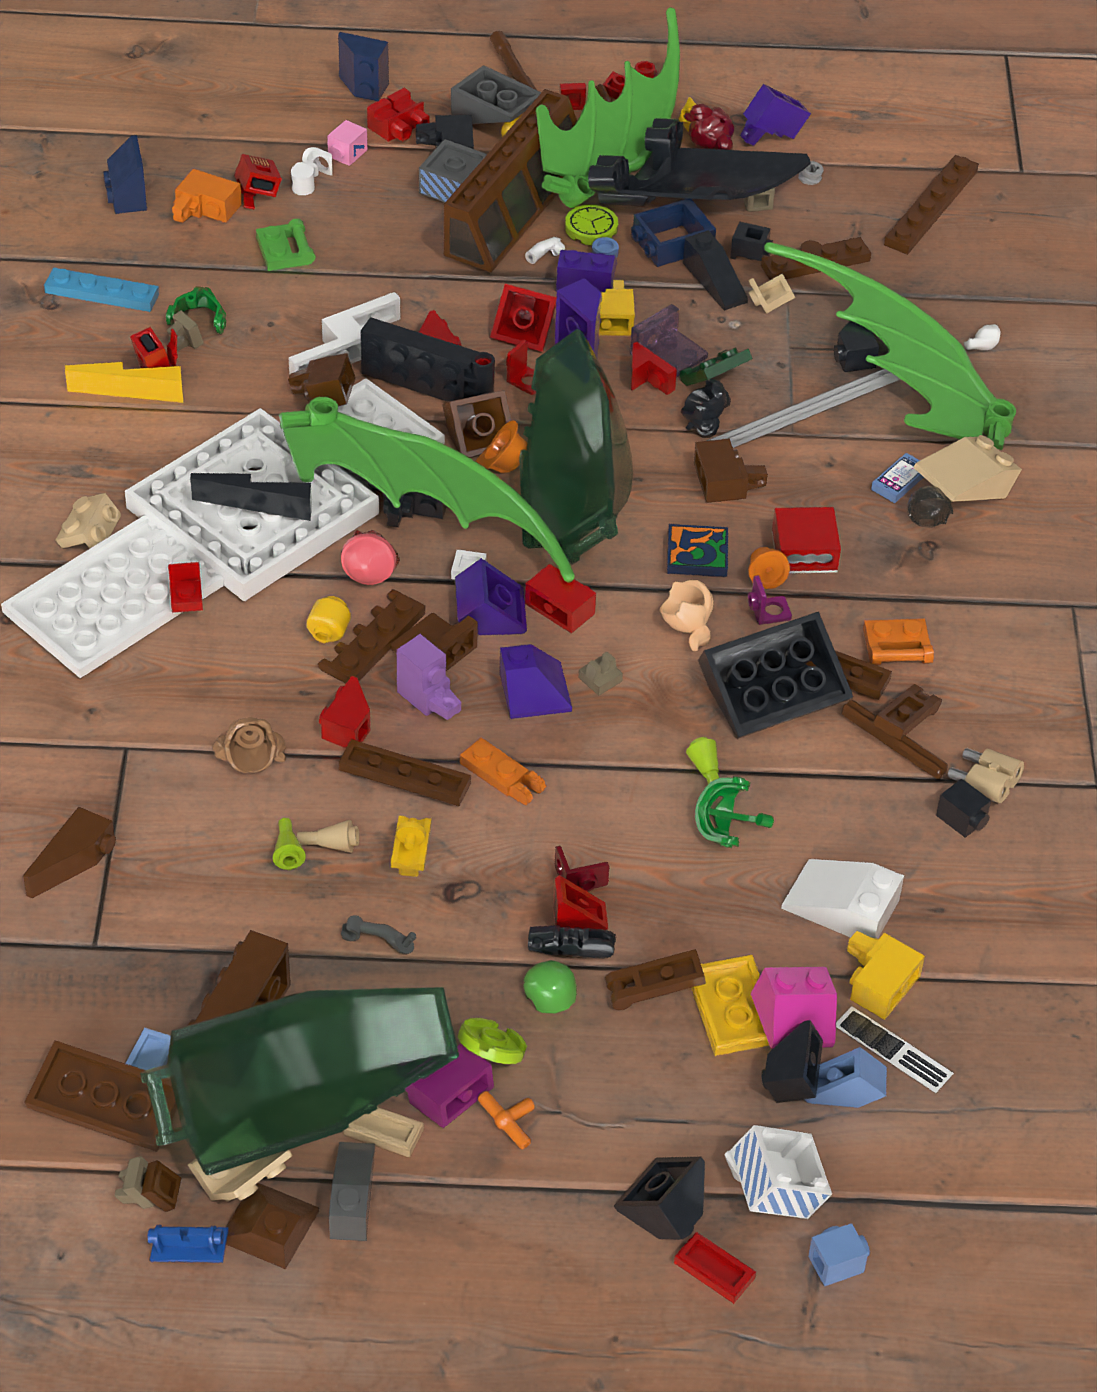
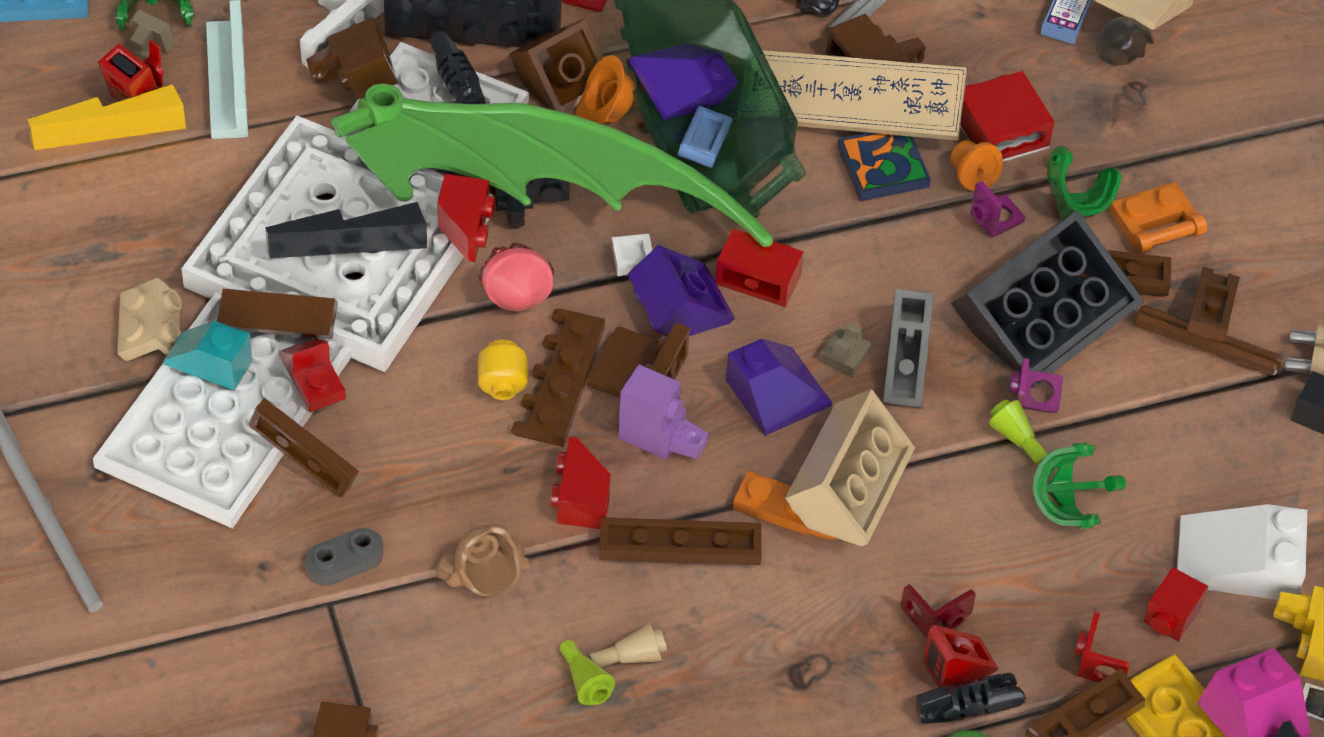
camera: 20 degrees left, 5 degrees up
(119, 554) = (212, 353): none -> teal slope
(151, 718) = (345, 555): none -> dark grey plate
(152, 633) = (303, 448): none -> reddish brown tile
(177, 537) = (278, 313): none -> reddish brown tile
(229, 372) = (227, 76): none -> light aqua fence
(347, 500) = (463, 211): none -> red slope
(393, 404) = (456, 70): none -> black hinge
(411, 845) = (734, 632): yellow hips -> none
(556, 755) = (851, 470): none -> tan slope
(561, 495) = (705, 136): none -> medium blue tile
(562, 451) = (684, 78): none -> dark purple slope
(648, 681) = (908, 348): none -> dark grey slope
(683, 929) = (1091, 660): none -> red bracket
(689, 610) = (914, 242): light nougat hair -> none
(702, 495) = (871, 94): none -> tan tile
(725, 730) = (1021, 385): none -> magenta bracket
(769, 918) = (1175, 604): none -> red brick
(836, 616) = (1089, 202): none -> green helmet

